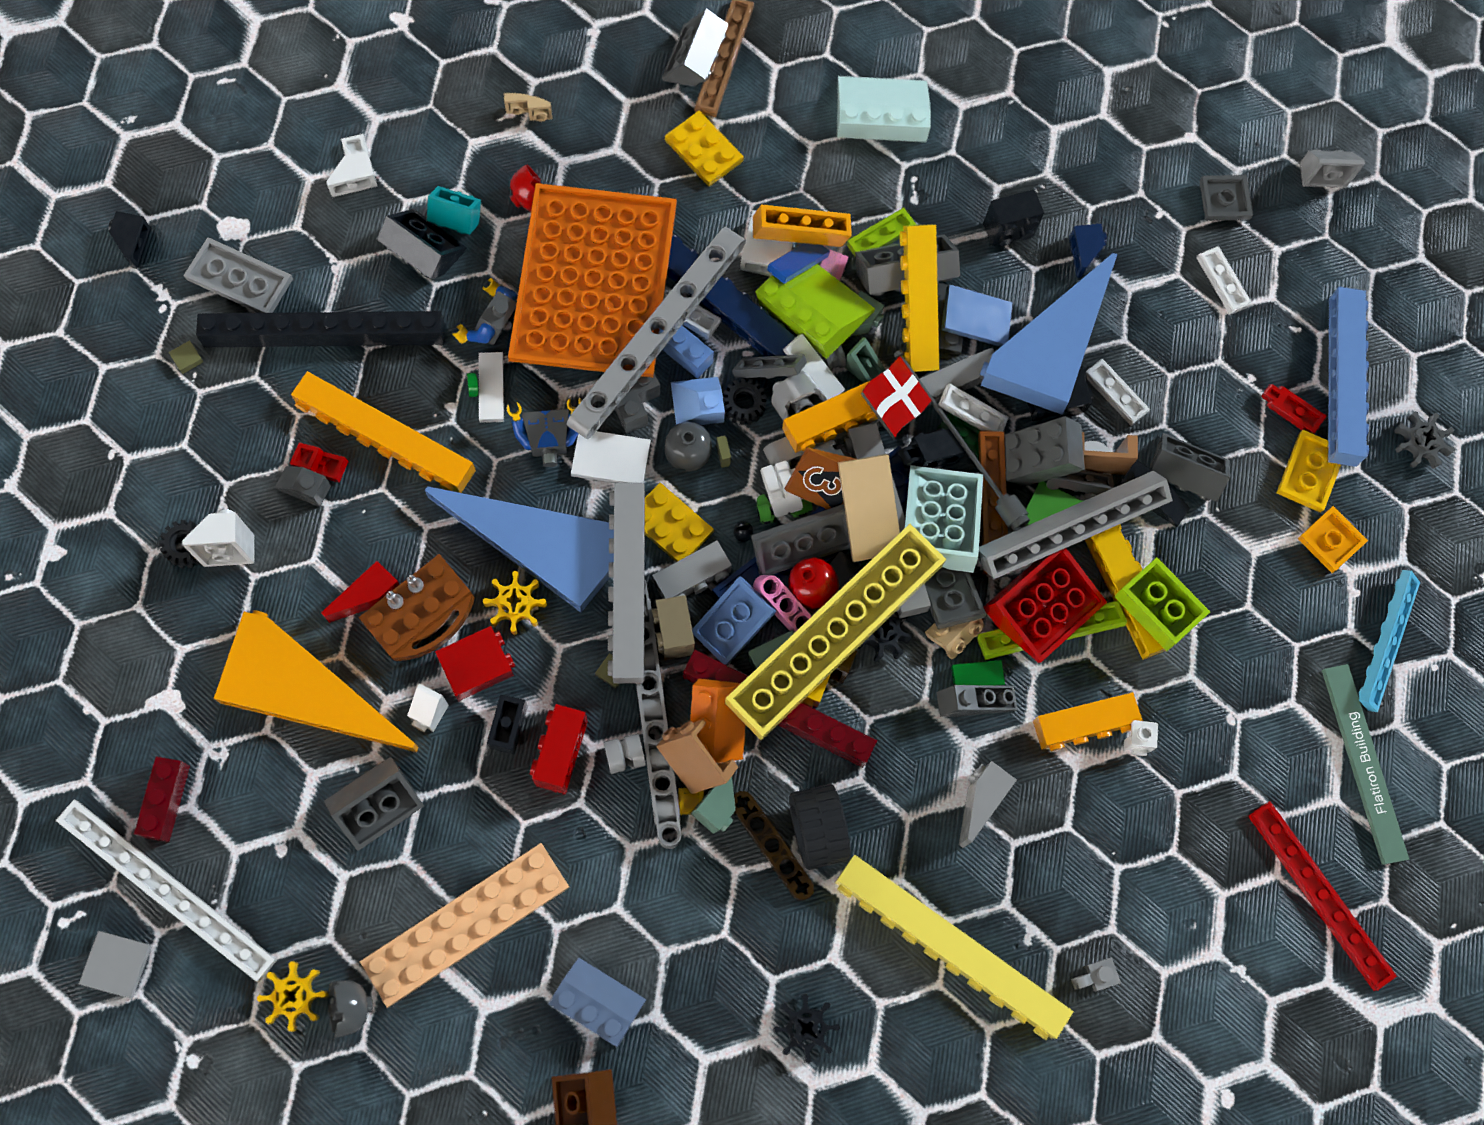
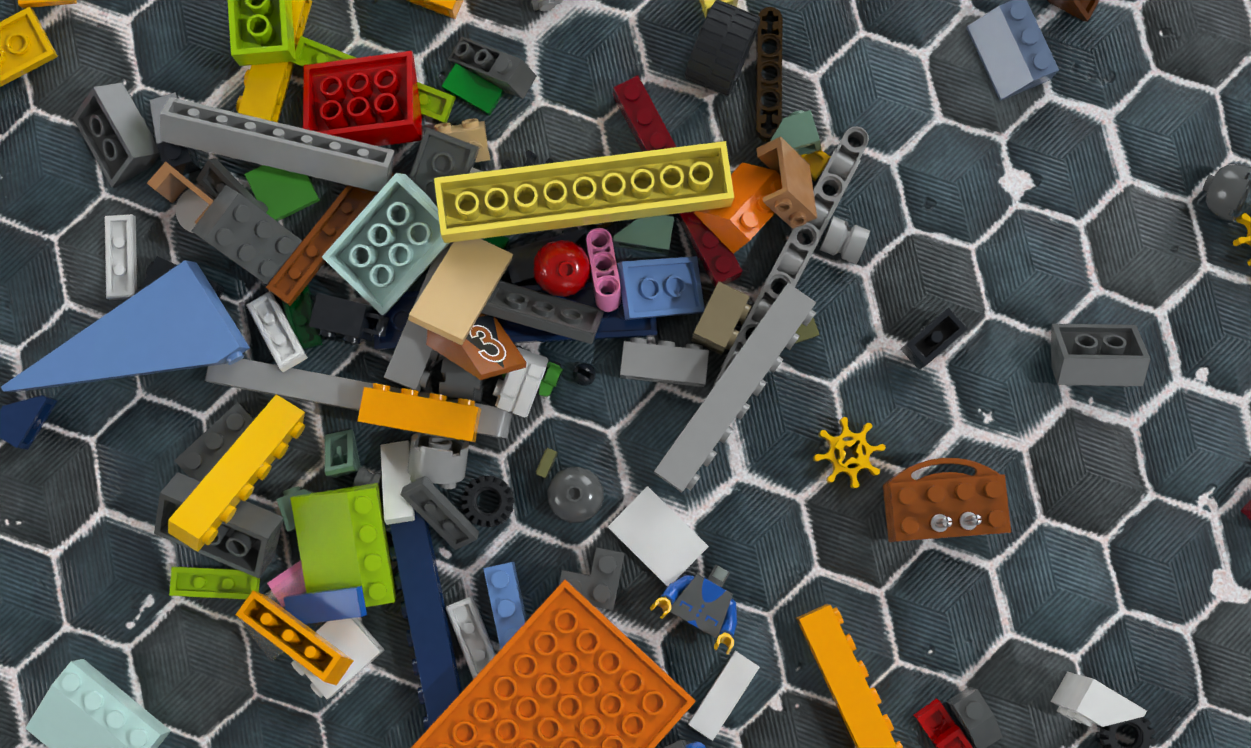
camera: 135 degrees left, 10 degrees up
(282, 680) = (1110, 528): light orange slope -> none
(362, 593) = (975, 560): red slope -> none
(426, 708) = (996, 405): white slope -> none
(464, 925) = (1081, 194): light nougat plate -> none
(472, 385) = (742, 709): green tile -> none
(475, 663) = (923, 420): red brick -> none
(554, 547) = (776, 480): medium blue slope -> none
(559, 748) = (903, 281): red brick -> none
(647, 345) = (508, 623): light grey beam -> none
(673, 524) = (645, 426): yellow plate -> none
(698, 401) = (531, 536): light blue slope -> none
(900, 397) = (347, 383): flag -> none
(976, 316) = (192, 425): medium blue tile -> none
(1013, 218) = (70, 499): black brick -> none

